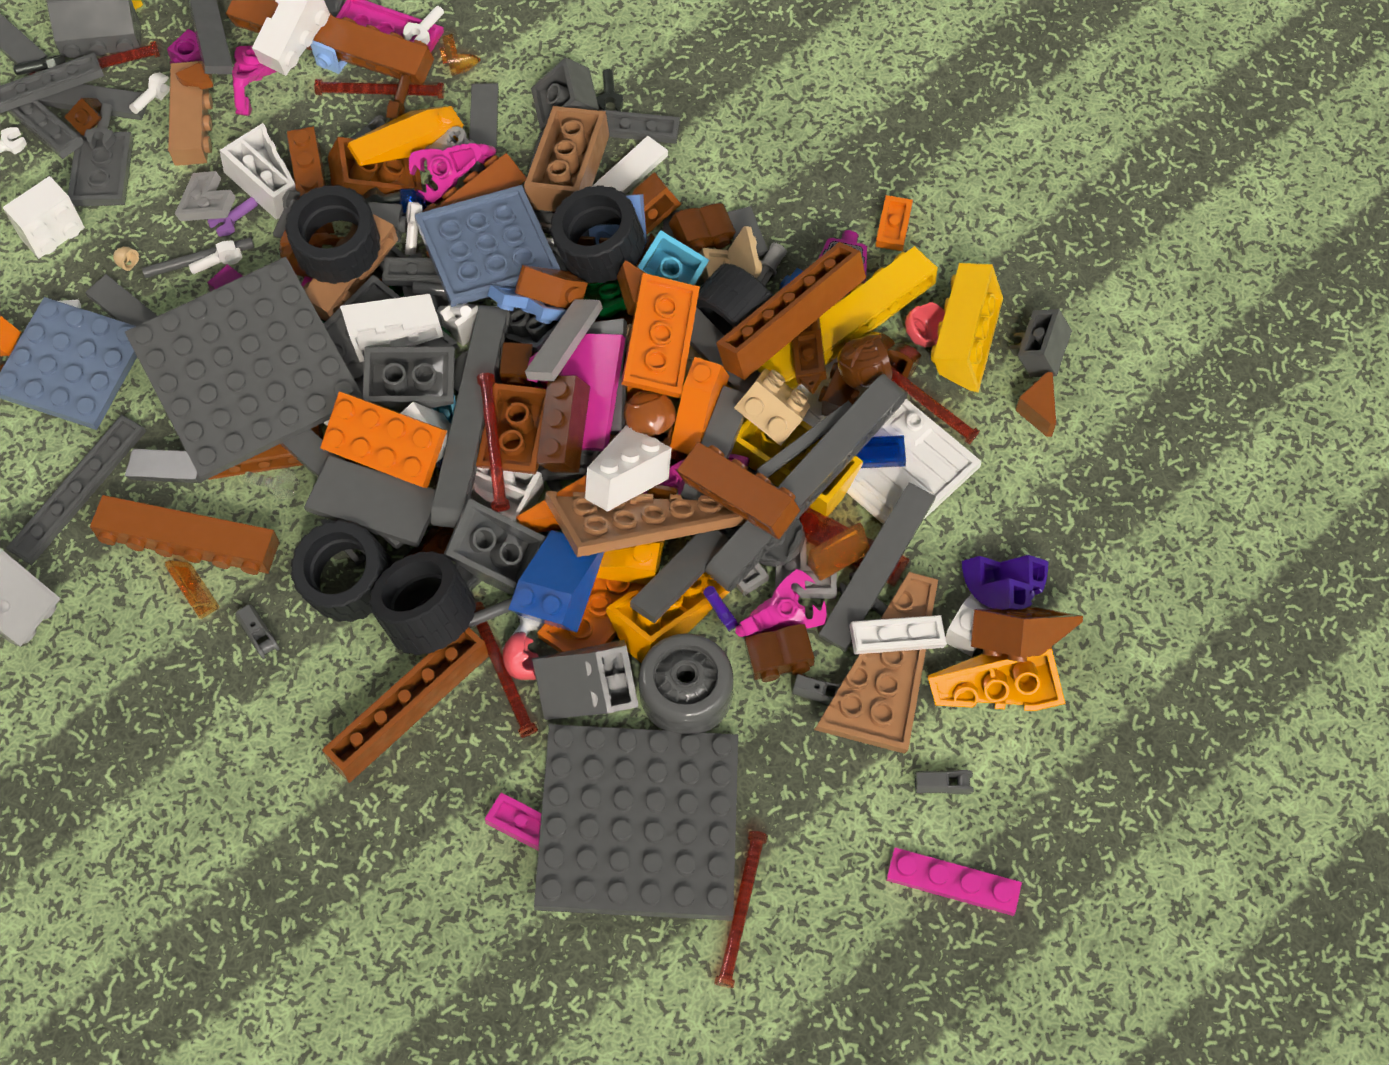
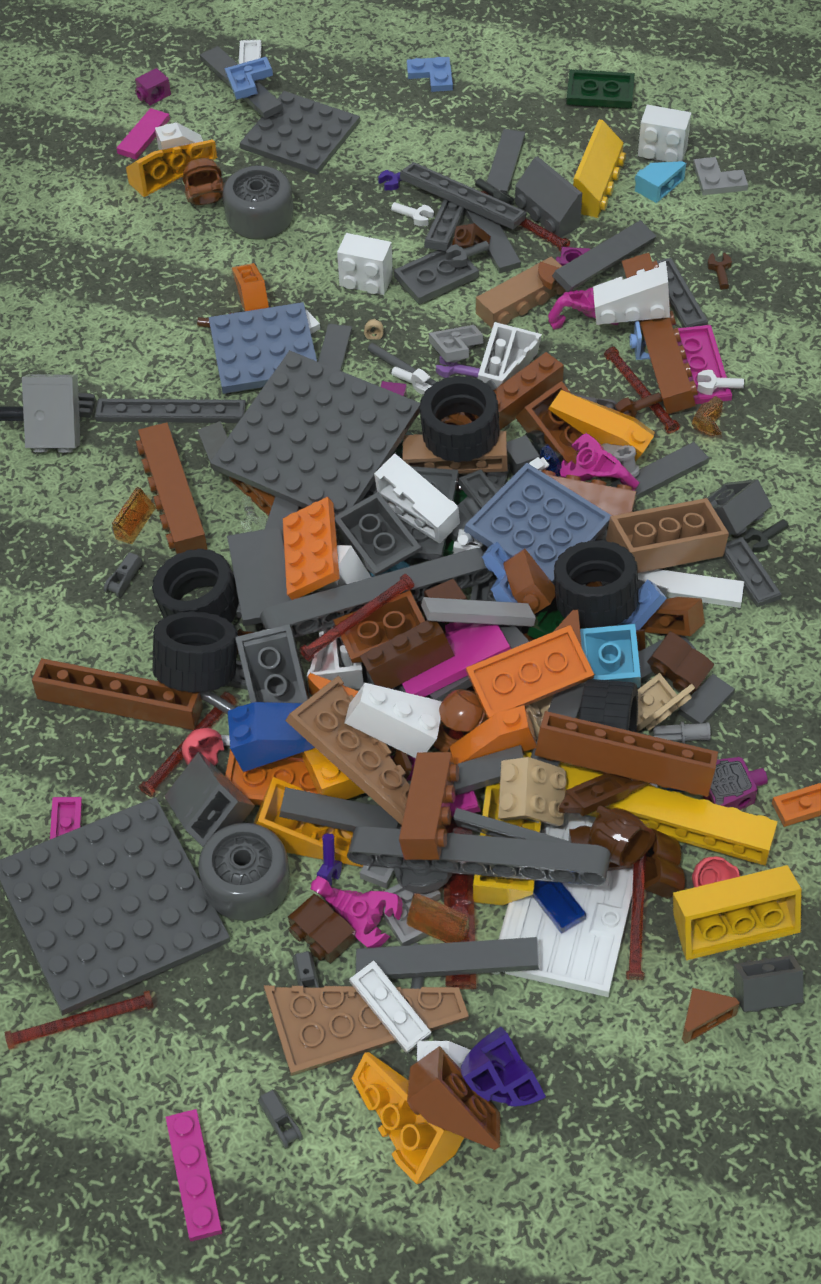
camera: 60 degrees right, 10 degrees down
(156, 89) = (525, 263): white bar -> none

